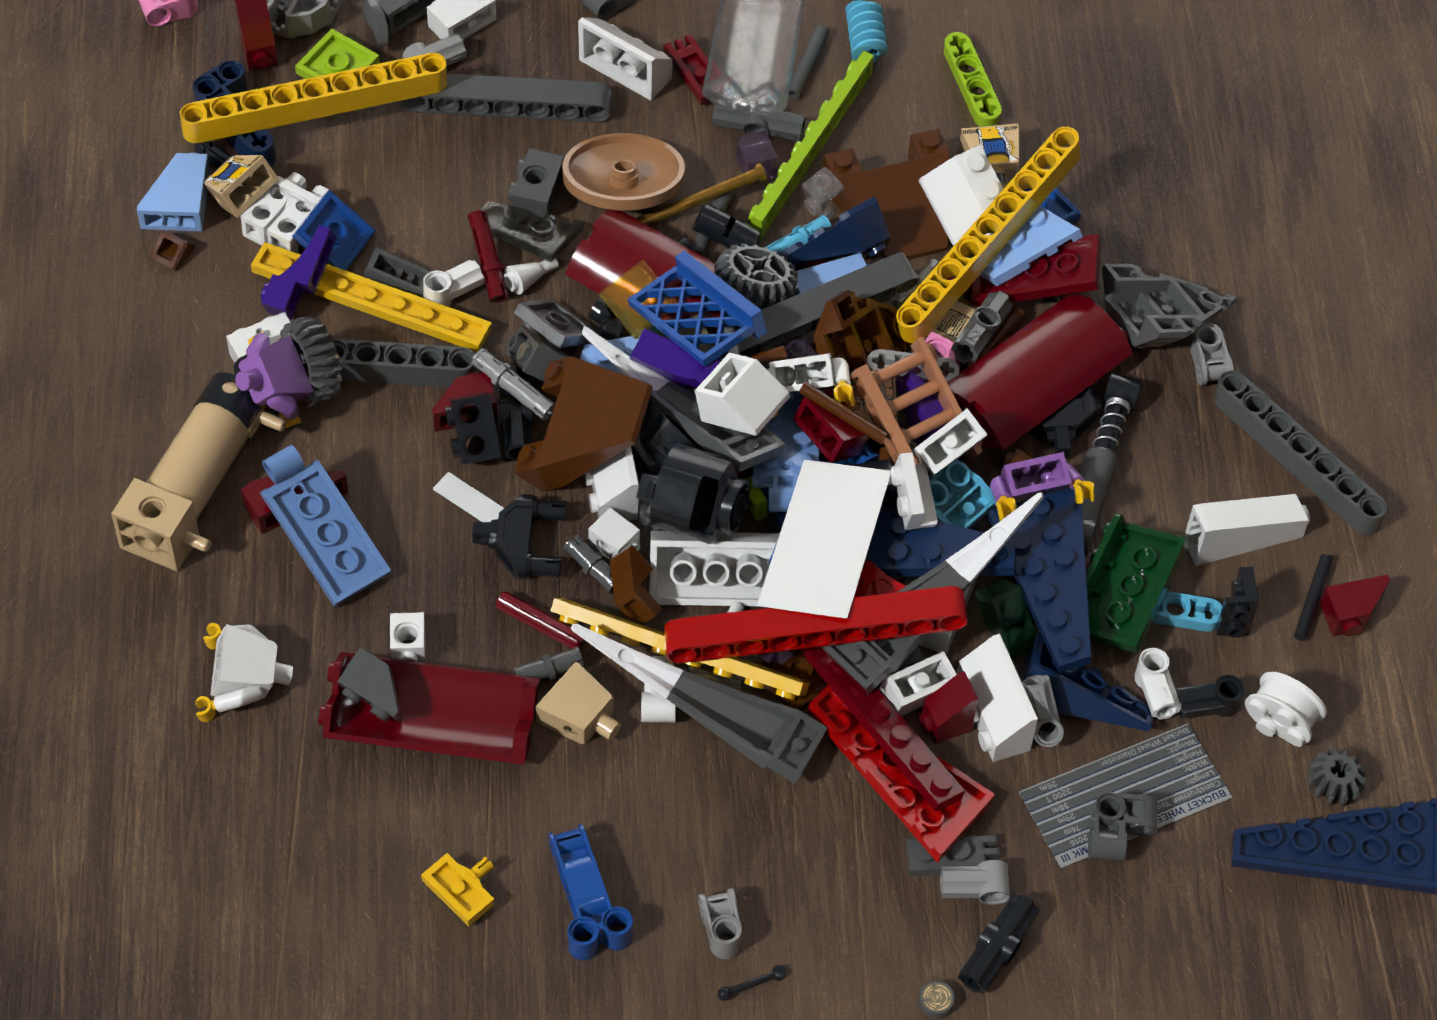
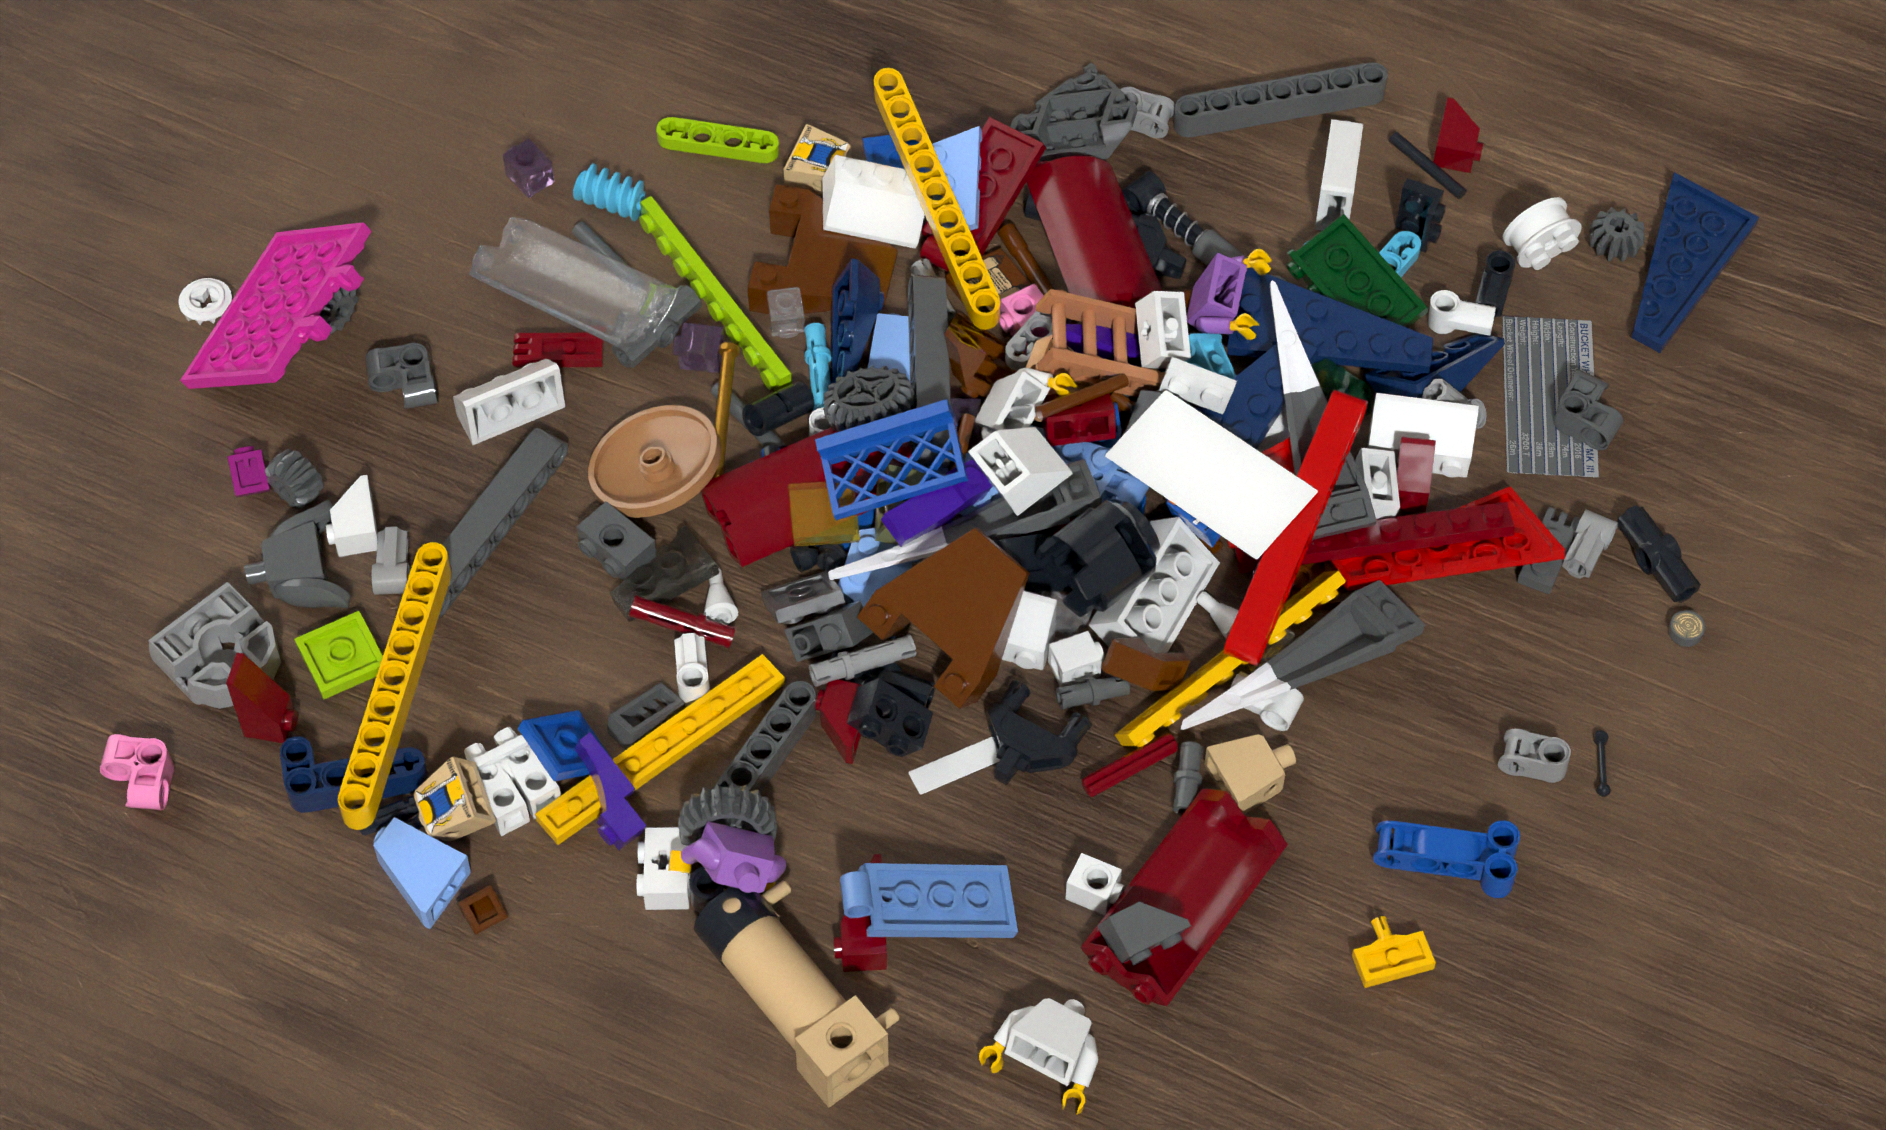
camera: 60 degrees left, 0 degrees up
(982, 327) = (1024, 257): dark grey piece -> none

